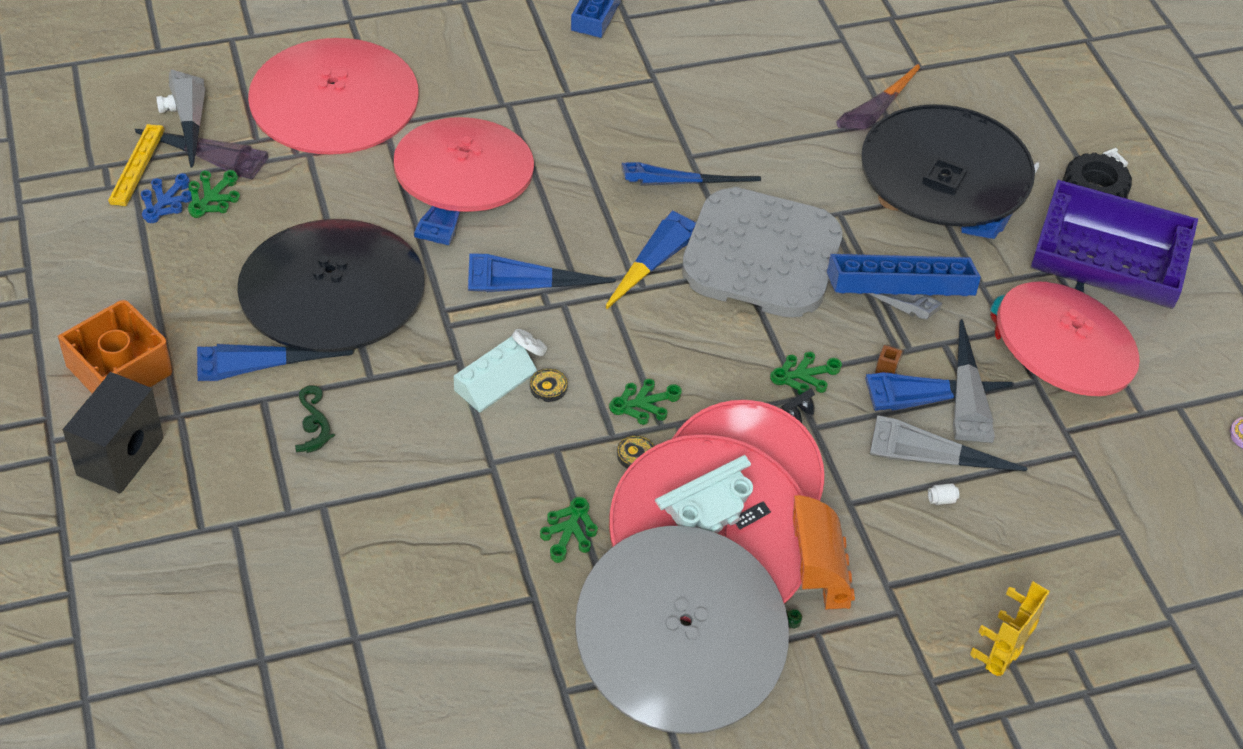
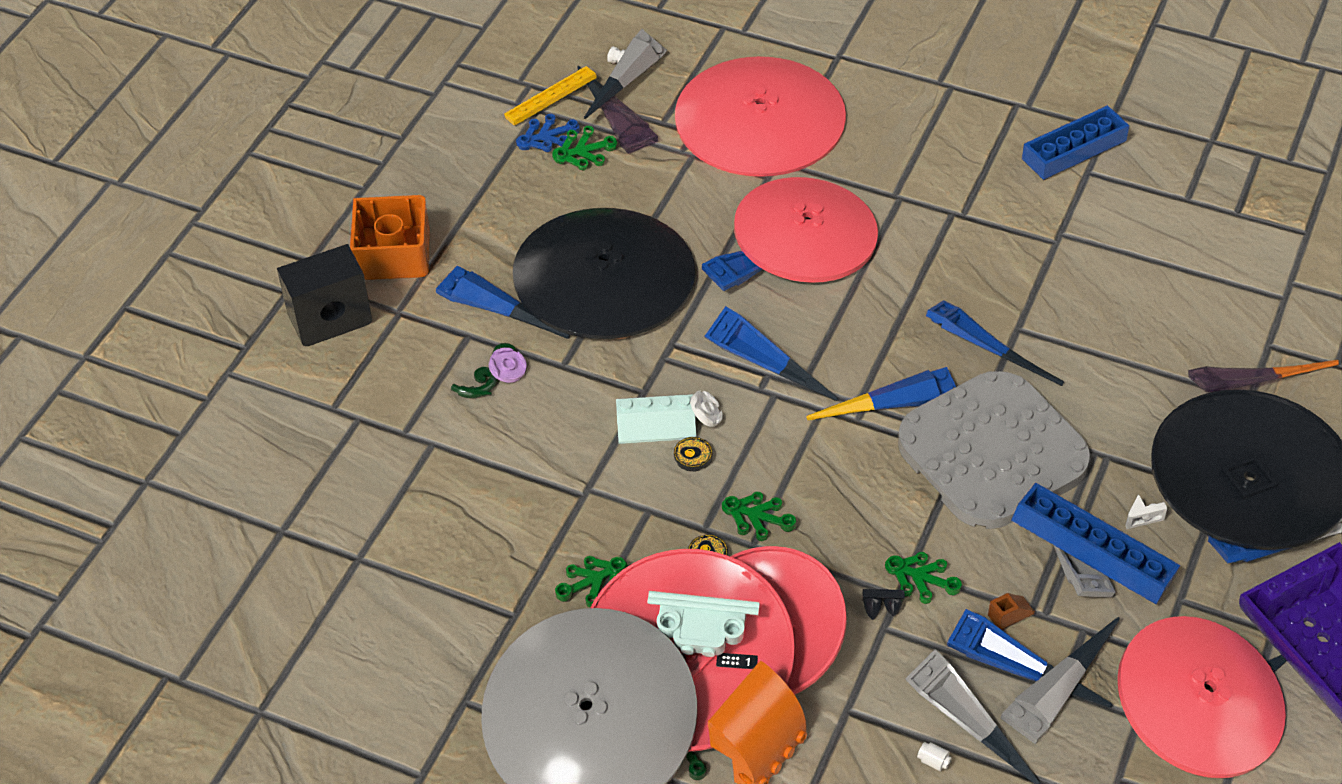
camera: 45 degrees right, 0 degrees up
(326, 403) = (507, 365): none -> lavender tile
(904, 238) = (1141, 515): none -> white slope

